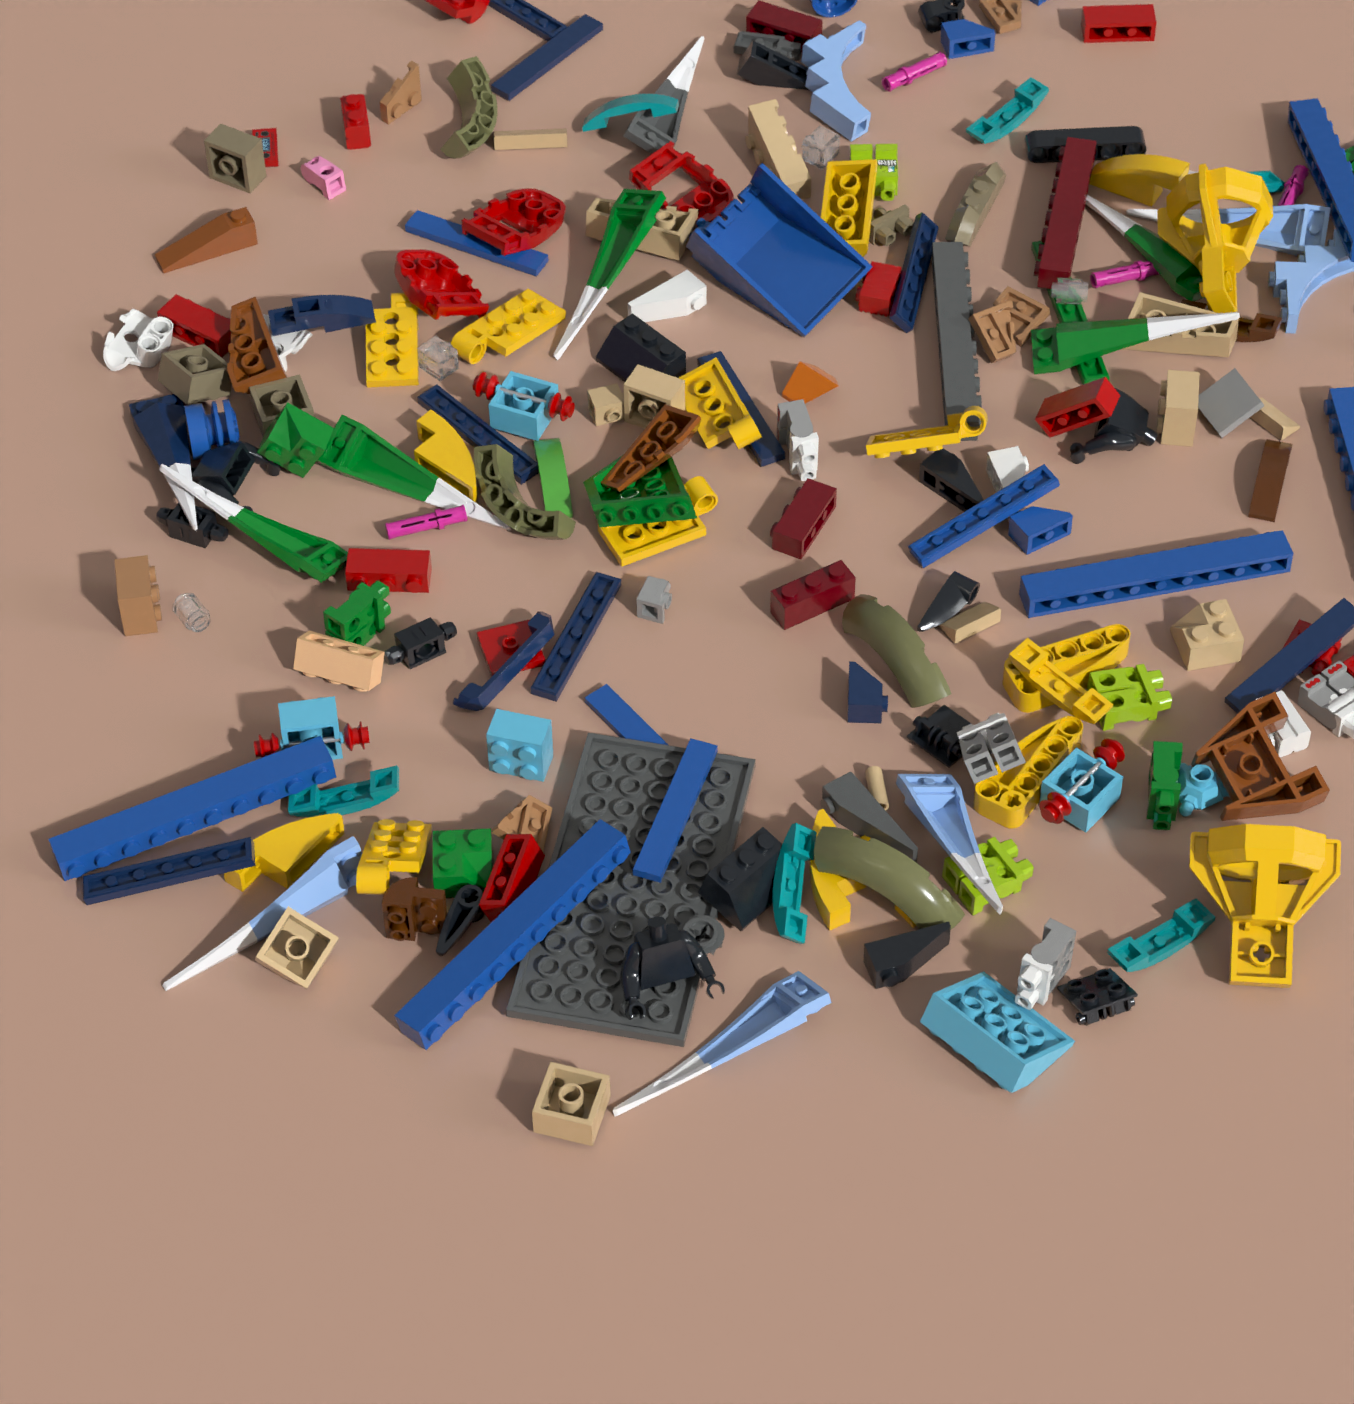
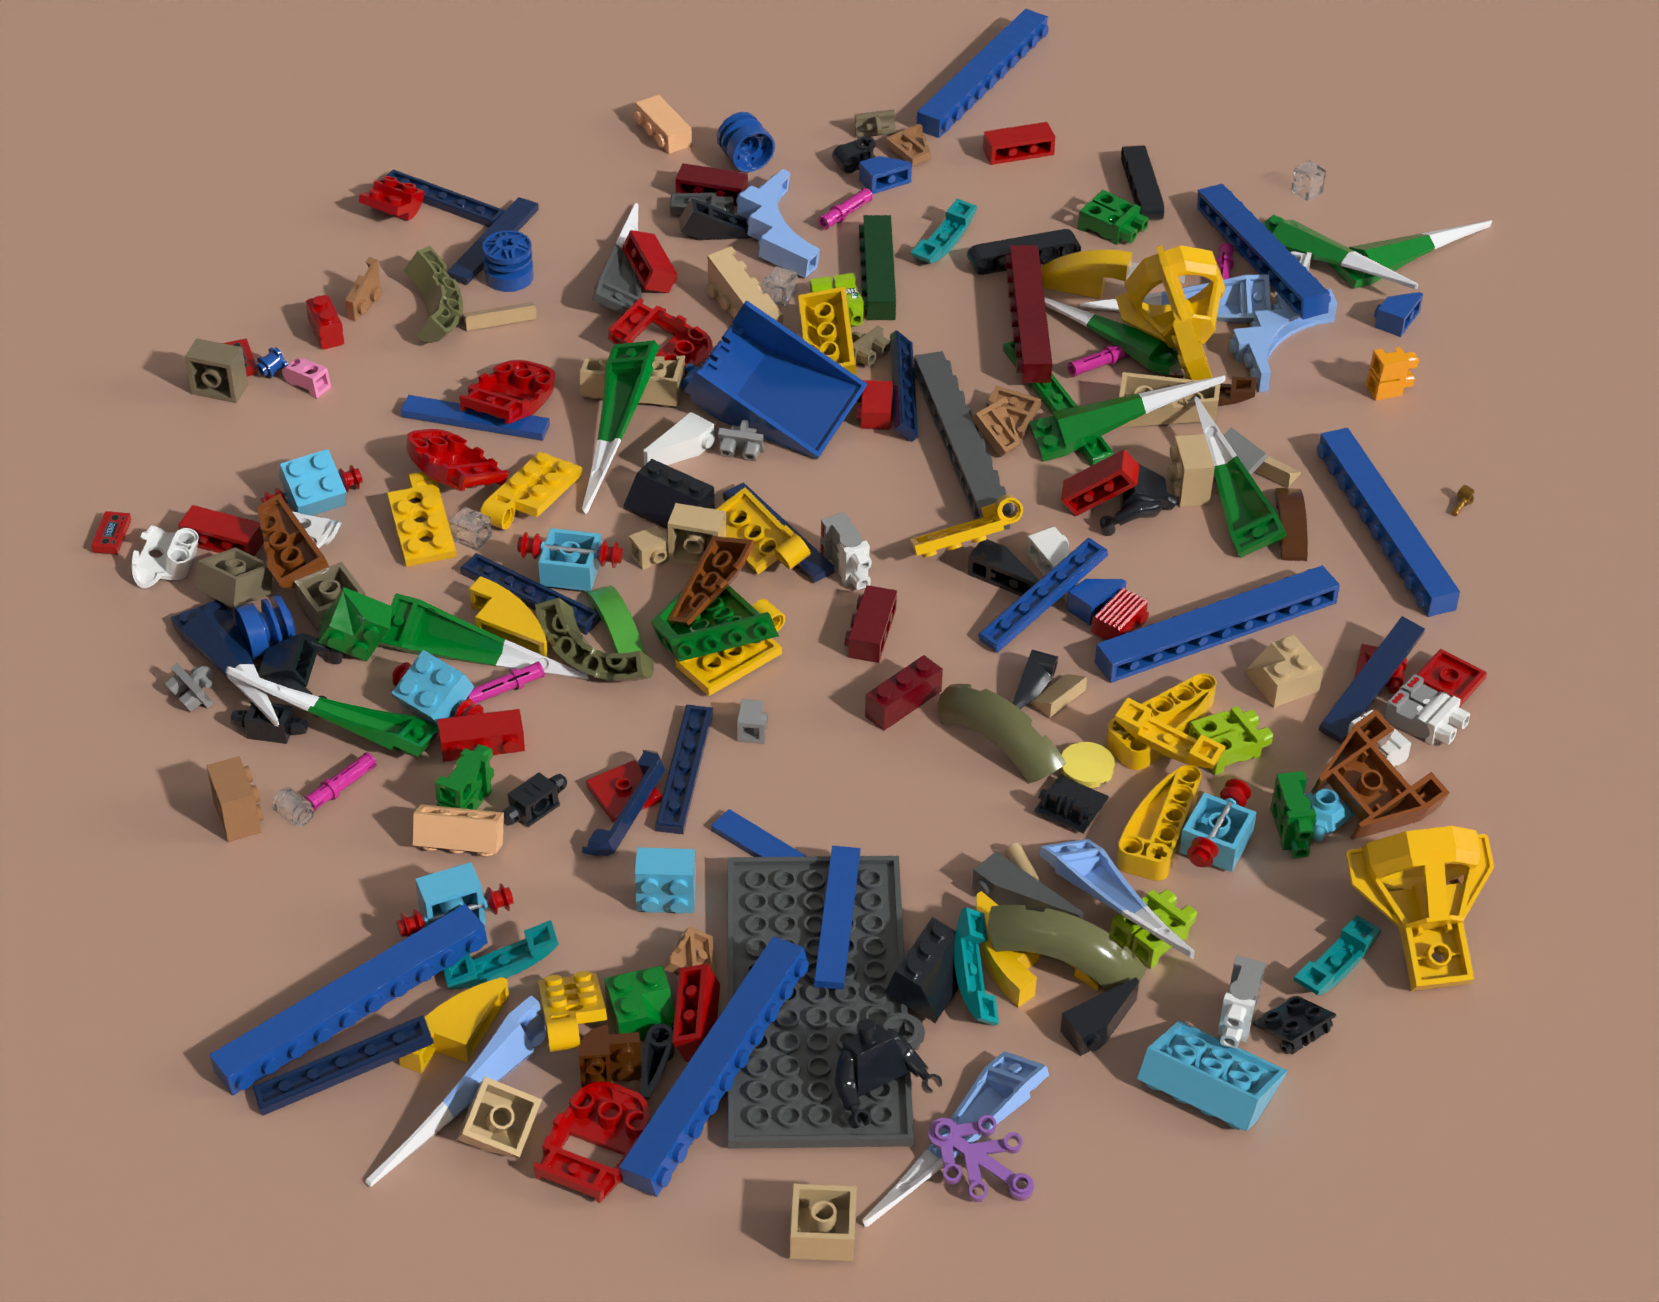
camera: 15 degrees left, 5 degrees down
(95, 309) = (111, 532): none -> red tile
(132, 474) = (200, 678): none -> light grey hips
(216, 238) = (213, 449): dark orange wedge -> none
(233, 599) = (330, 788): none -> dark pink pin
(292, 157) = (271, 362): none -> blue brick
(295, 280) = (314, 483): none -> medium azure brick
(330, 311) = (352, 498): dark blue slope -> none
(354, 517) = (433, 689): none -> medium azure brick
(394, 962) = (602, 1116): none -> red slope
(552, 82) = (508, 261): none -> blue wheel
(659, 105) = (561, 287): teal slope -> none
(696, 102) = (649, 261): none -> red brick
(733, 304) = (741, 438): none -> light grey hips
(739, 1067) = (977, 1155): none -> medium lavender plant
(808, 383) = (836, 499): orange slope -> none
(865, 696) = (982, 779): dark blue slope -> none
(928, 141) = (877, 267): none -> dark green brick
(975, 697) = (1088, 764): none -> light yellow tile
(976, 204) = (940, 317): dark tan brick -> none
(985, 738) = (1120, 798): light grey hips -> none
(1057, 549) = (1120, 615): none -> red brick
(1069, 291) = (1055, 381): clear brick -> none
(1190, 120) = (1112, 218): none -> green hips
(1225, 460) = (1247, 511): none -> green plate
(1235, 85) = (1142, 181): none -> black beam

